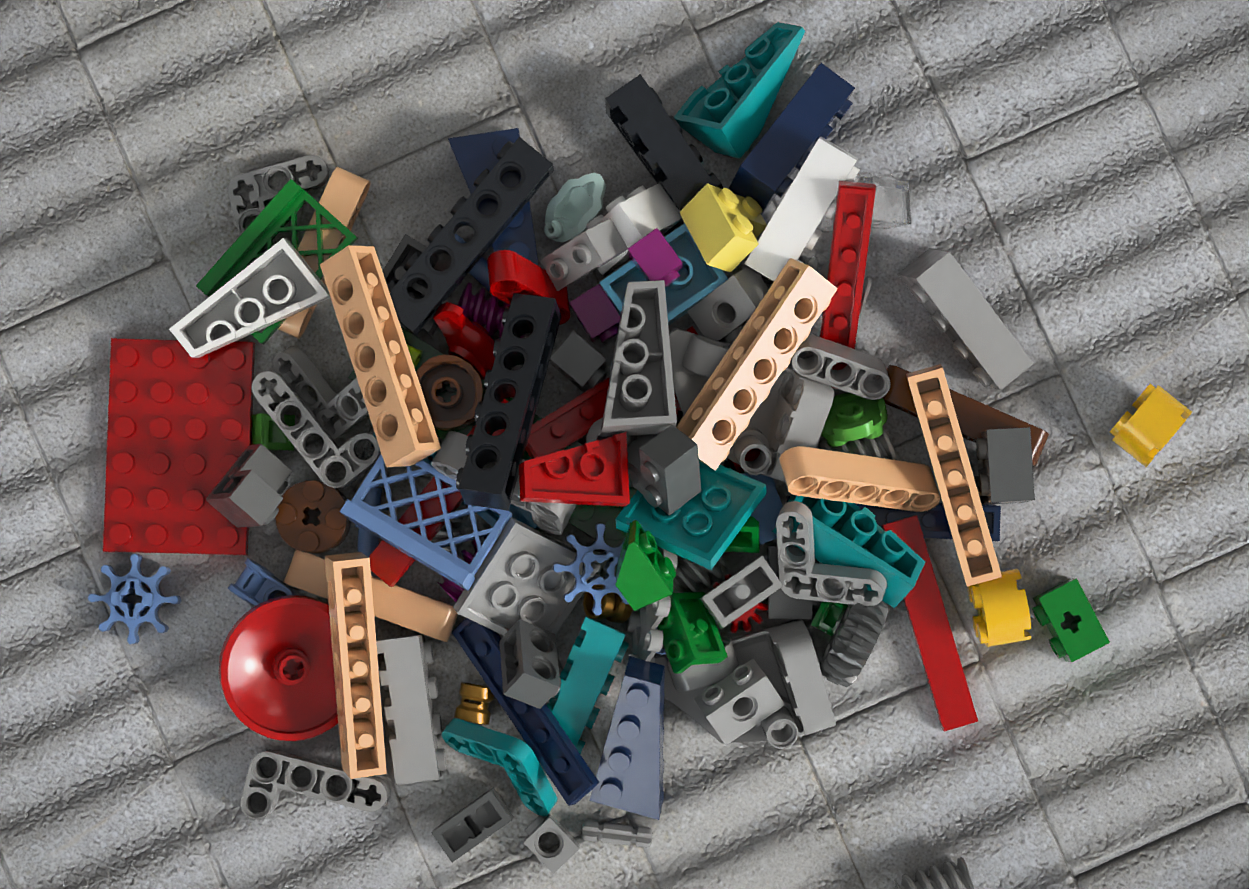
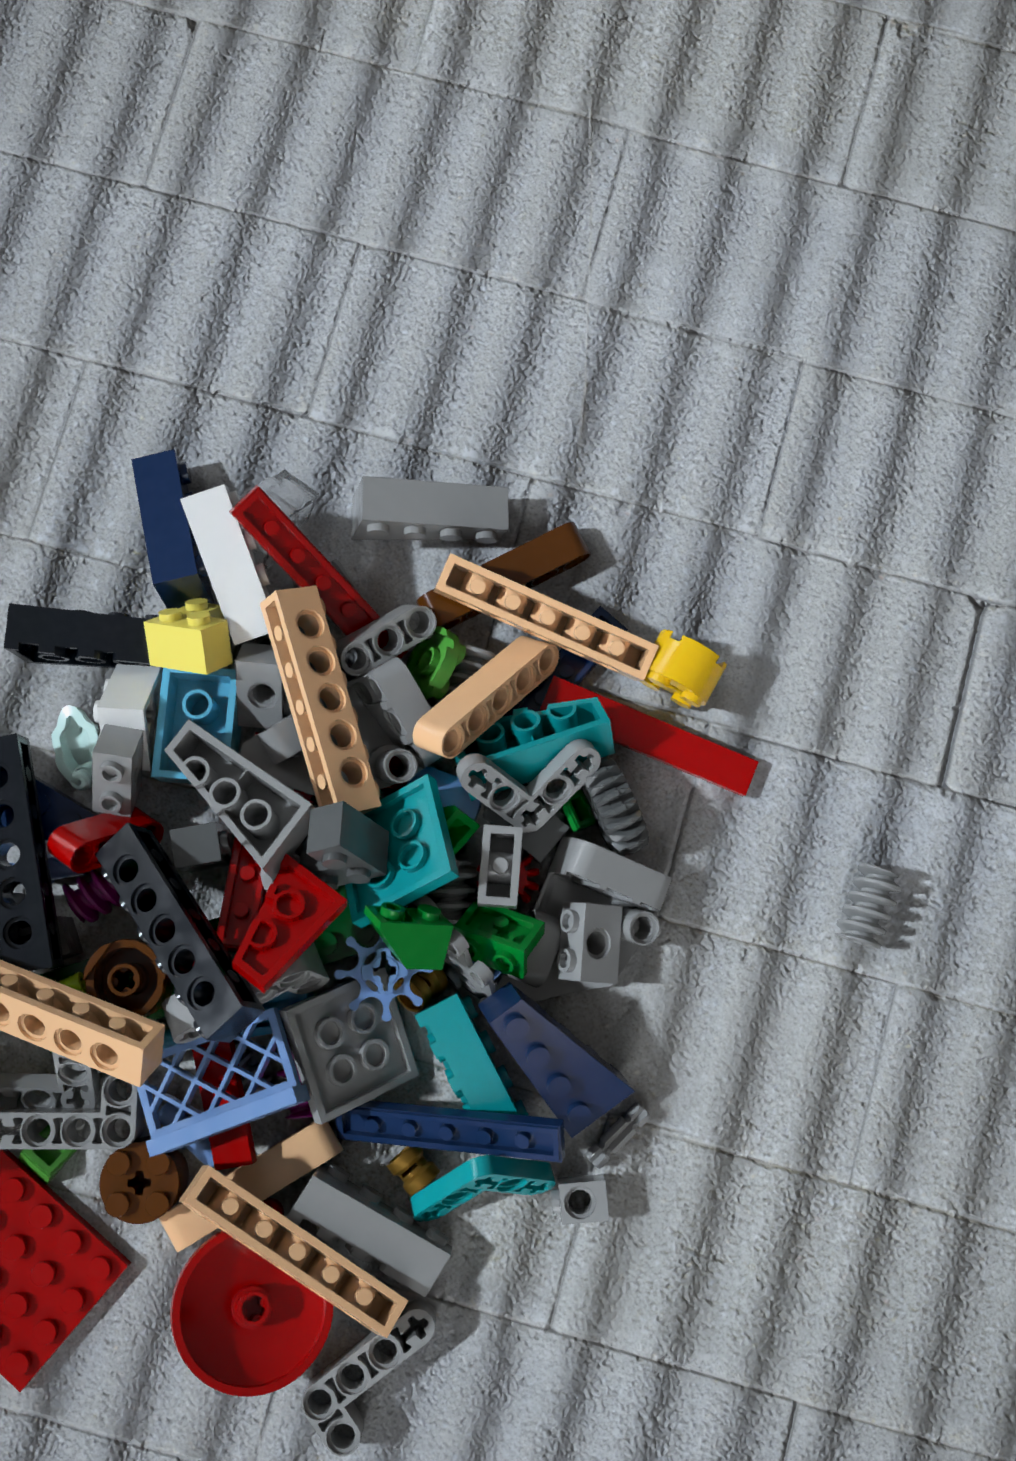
camera: 55 degrees left, 5 degrees down
(134, 583) = (70, 1411): medium blue gear -> none
(251, 488) = (72, 1215): dark grey brick -> none
(258, 584) = (159, 1274): medium blue piece -> none
(465, 338) = (96, 926): red animal -> none
(472, 824) = (513, 1257): dark grey brick -> none
(529, 664) = (416, 1096): dark grey brick -> none
(596, 314) = (177, 802): magenta brick -> none
(655, 258) = (167, 712): magenta brick -> none
(737, 104) = (111, 554): teal wedge -> none
(1006, 466) = (573, 571): dark grey brick -> none
(1087, 631) = (753, 617): green brick -> none
(1152, 424) = (631, 436): yellow brick -> none

